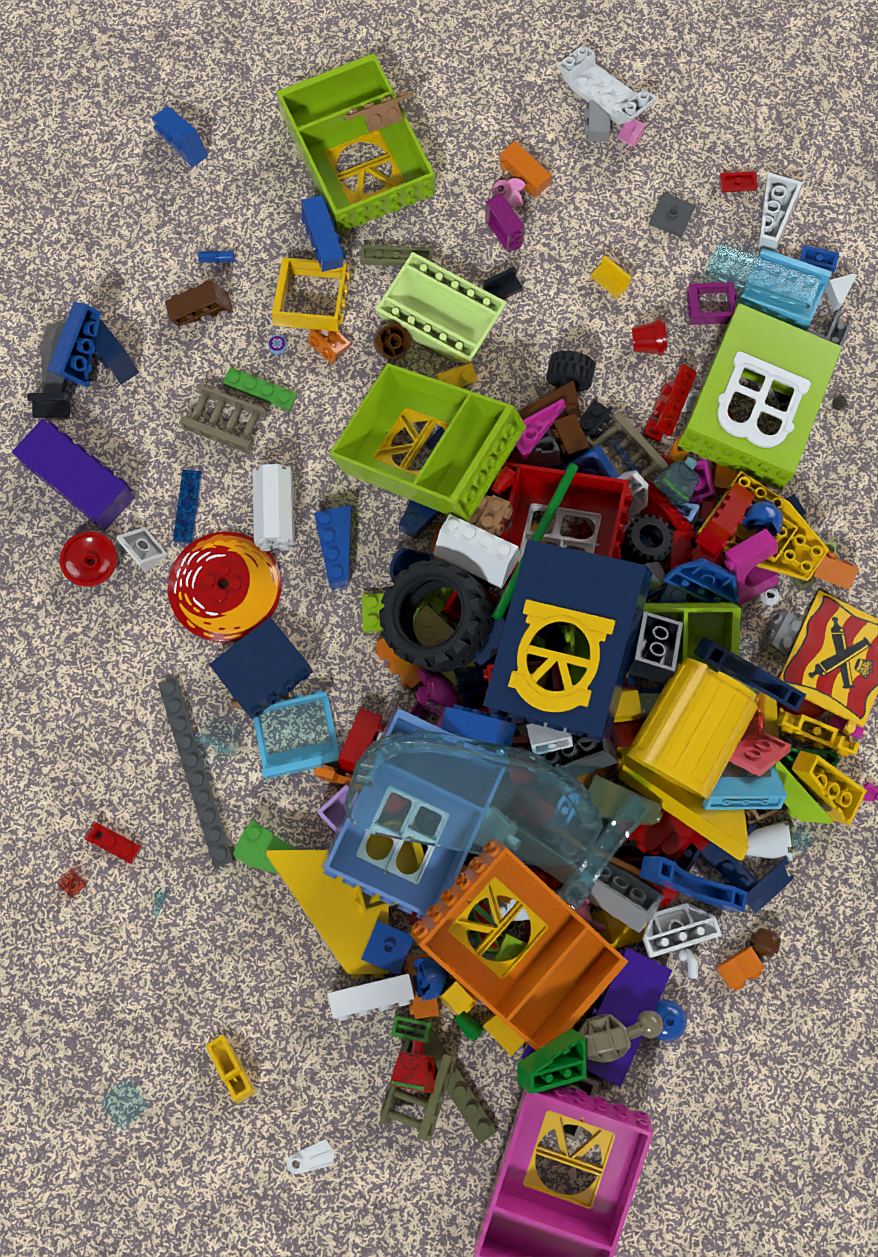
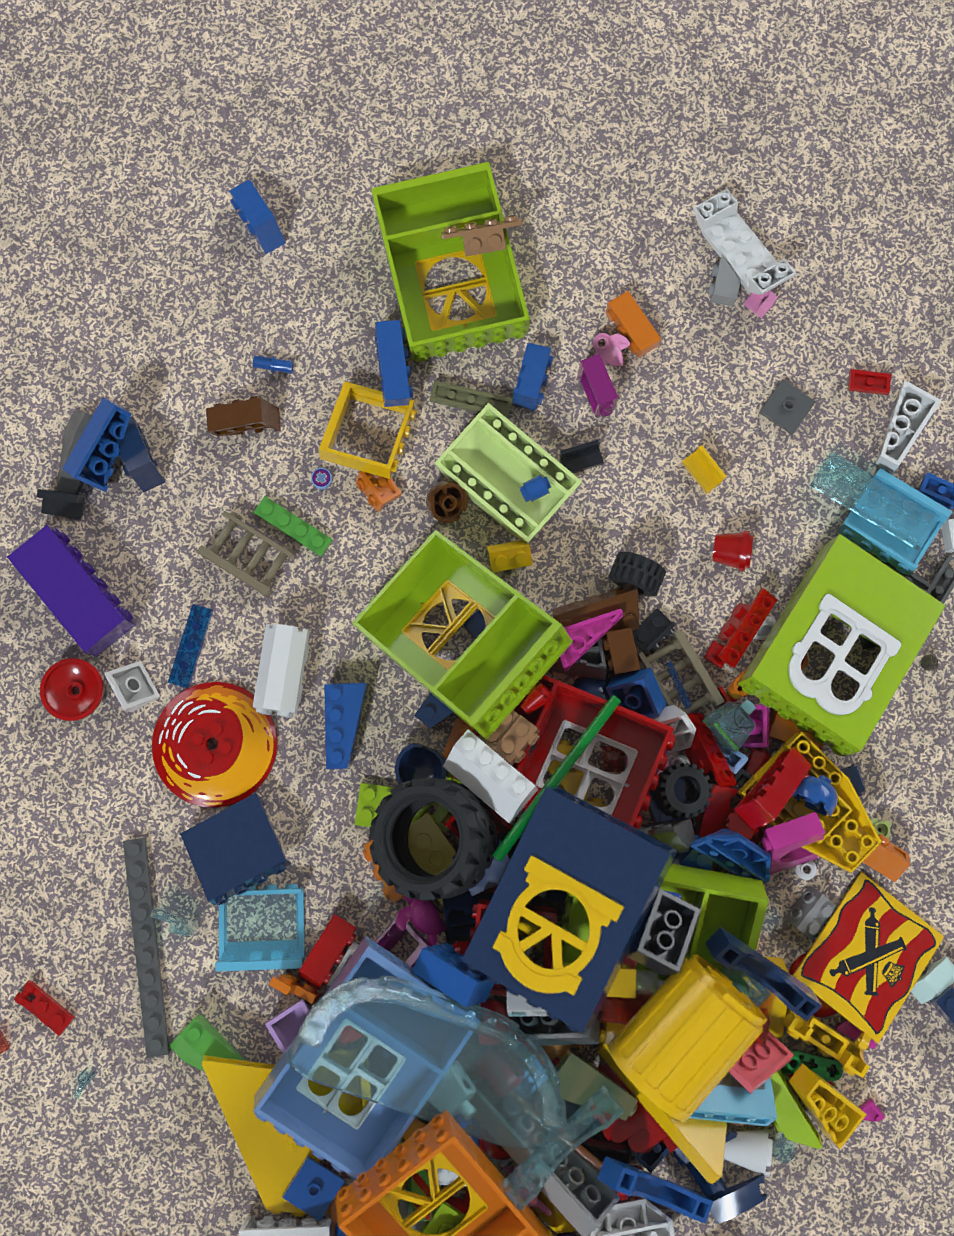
camera: 10 degrees right, 5 degrees up
(446, 227) = (532, 376): none -> blue wedge
(467, 313) = (535, 488): none -> blue brick
(697, 318) = (789, 516): magenta window -> none

